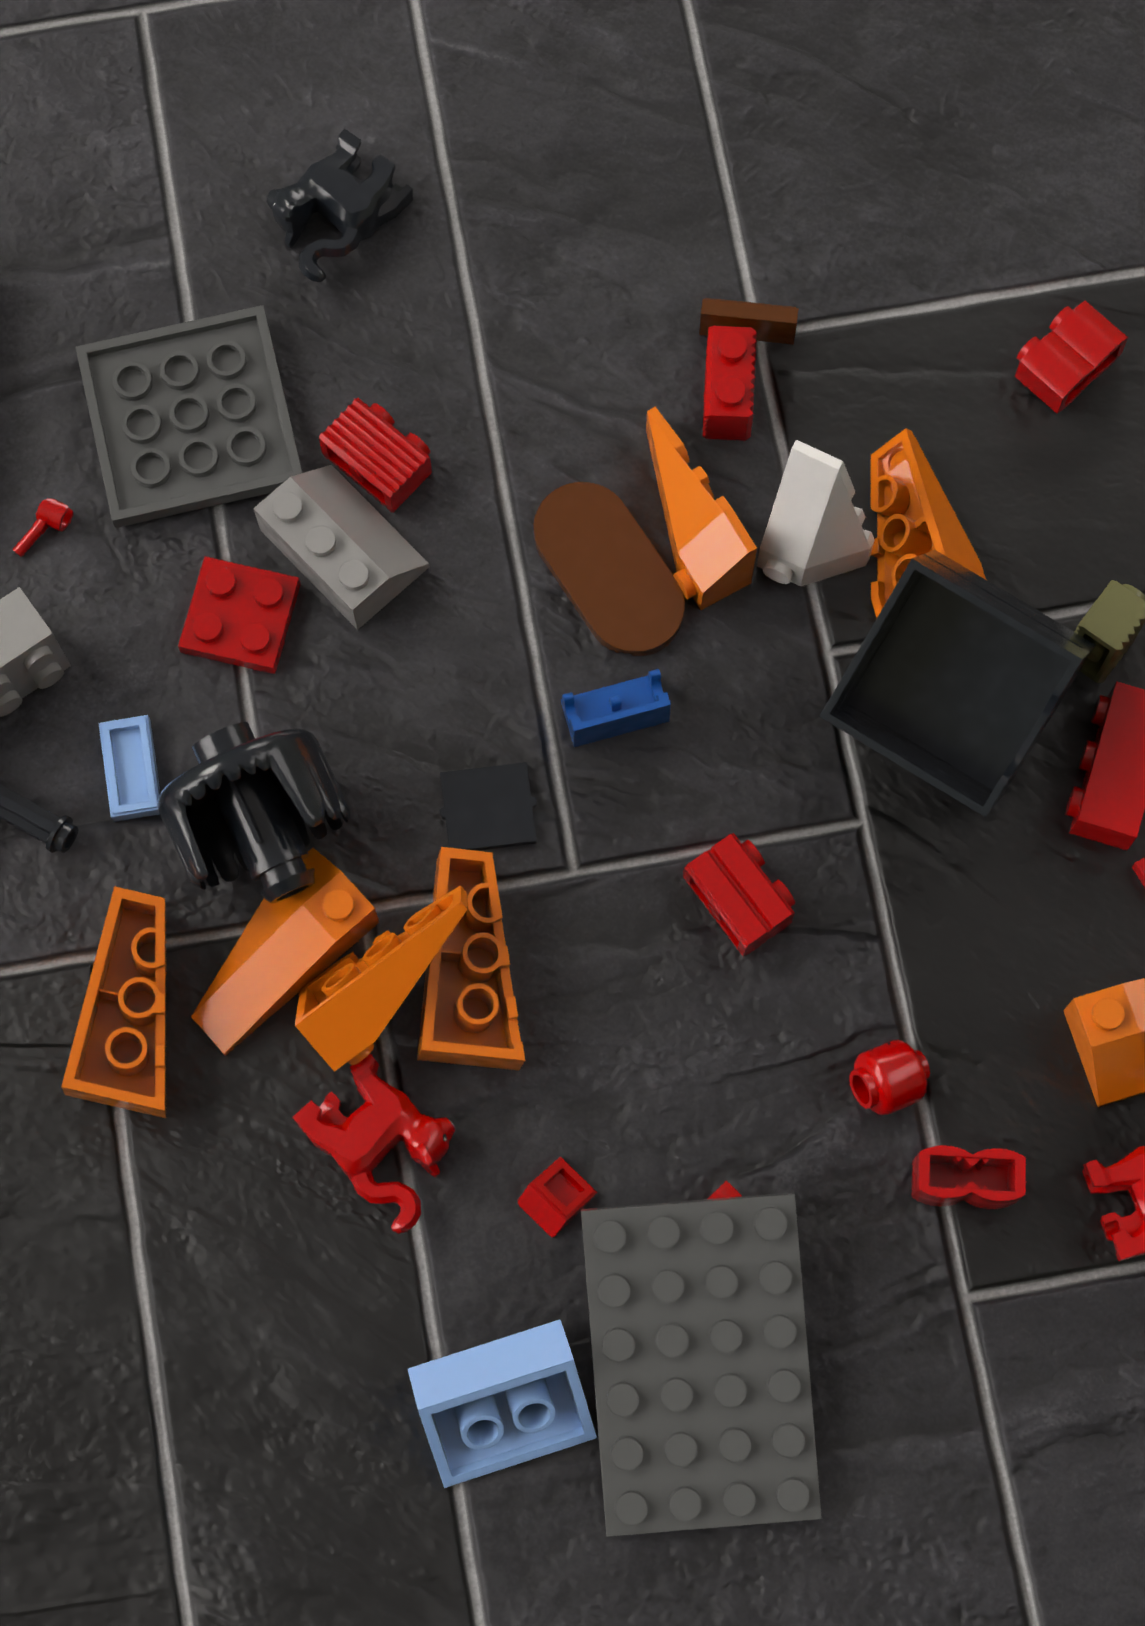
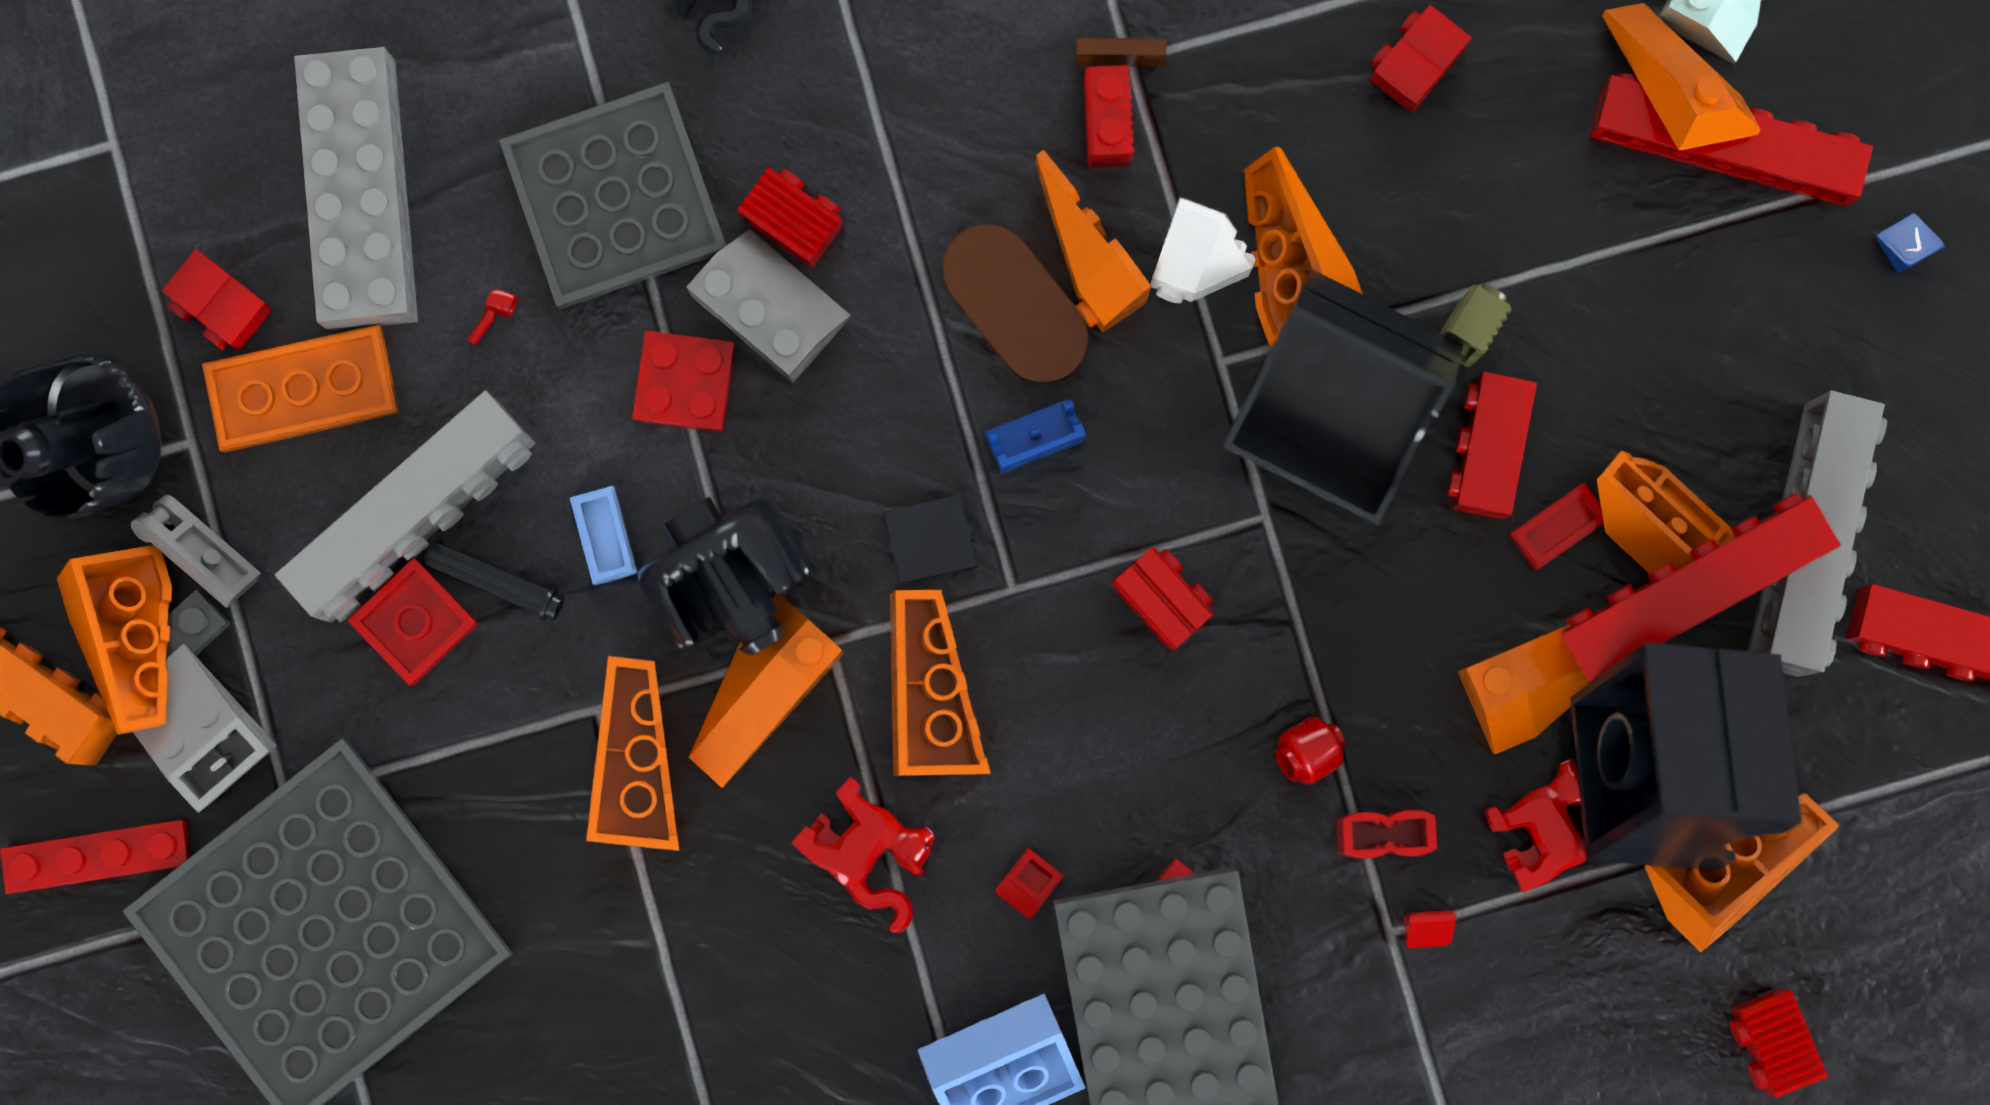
camera: 10 degrees left, 10 degrees up
(357, 997) = (837, 729): orange wedge -> none
(1010, 1293) = (1429, 928): none -> red slope

